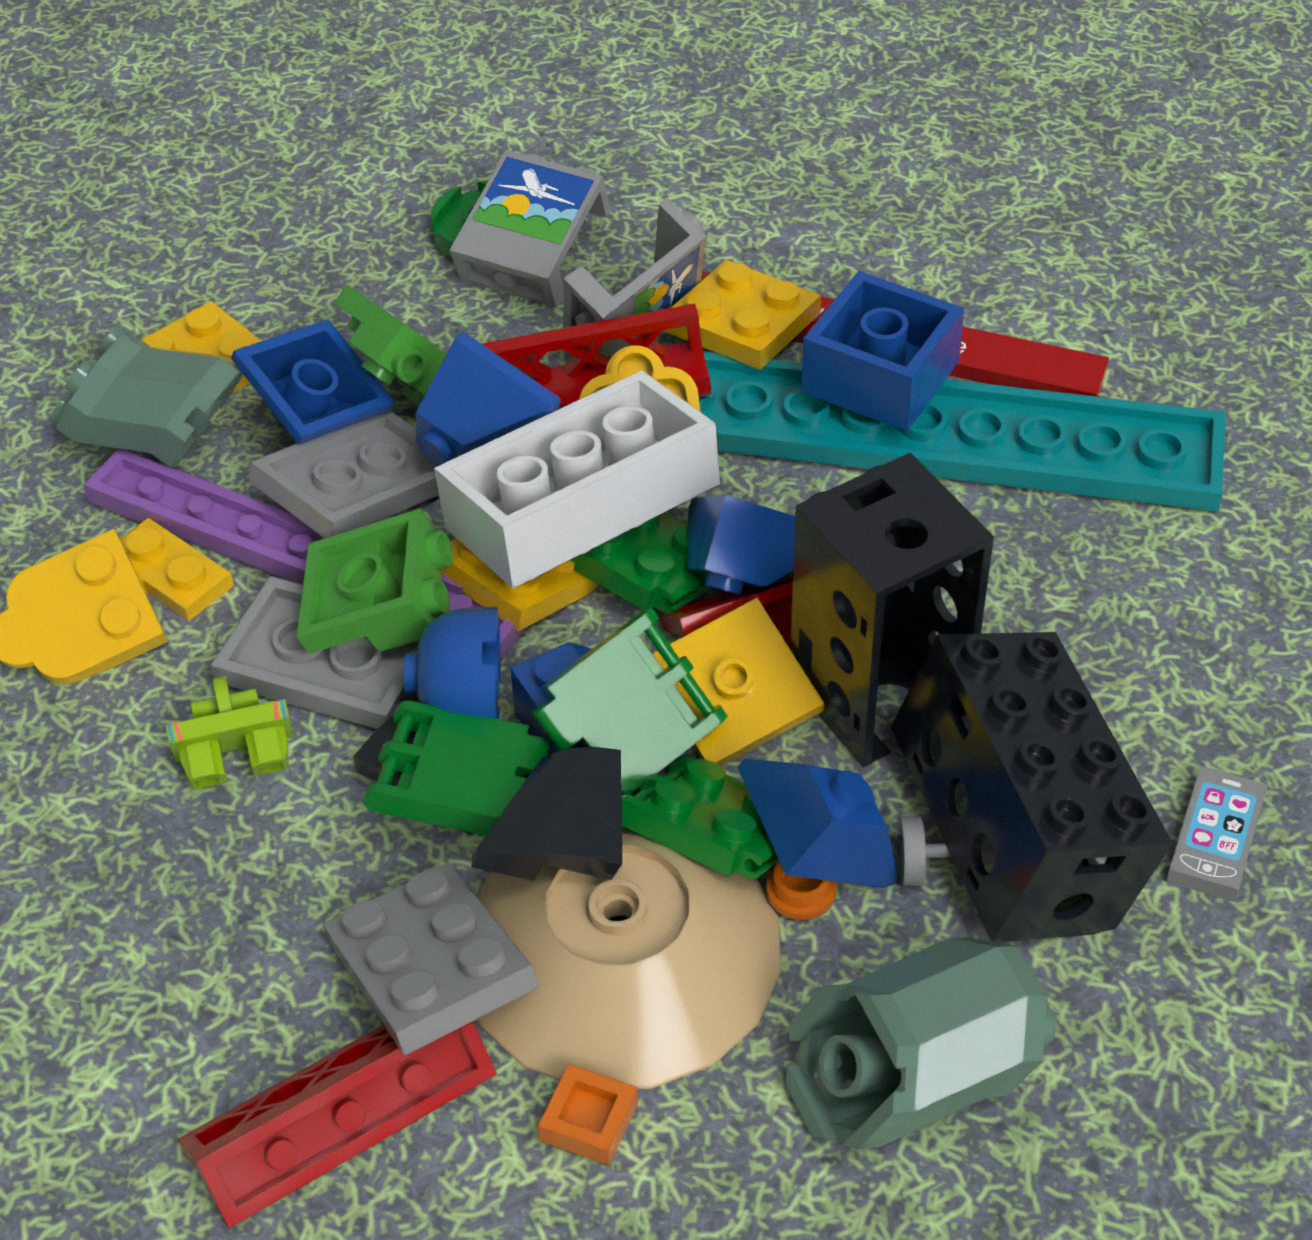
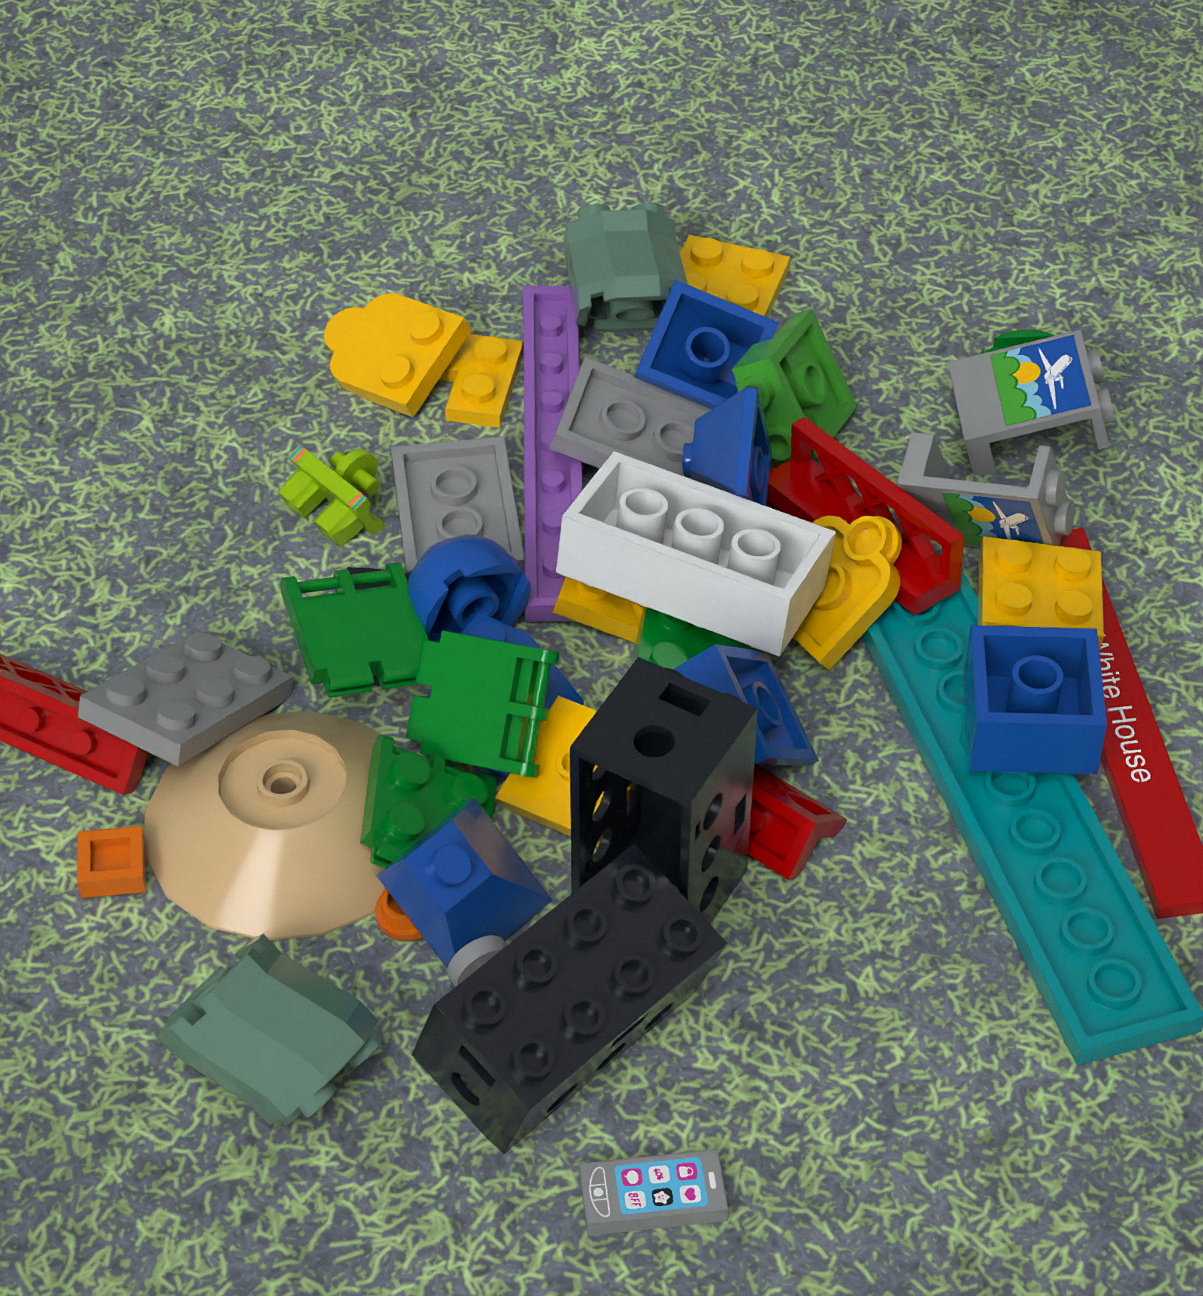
camera: 60 degrees right, 0 degrees up
(374, 584) = (511, 491): bright green plate -> none
(561, 818) = (333, 703): black slope -> none

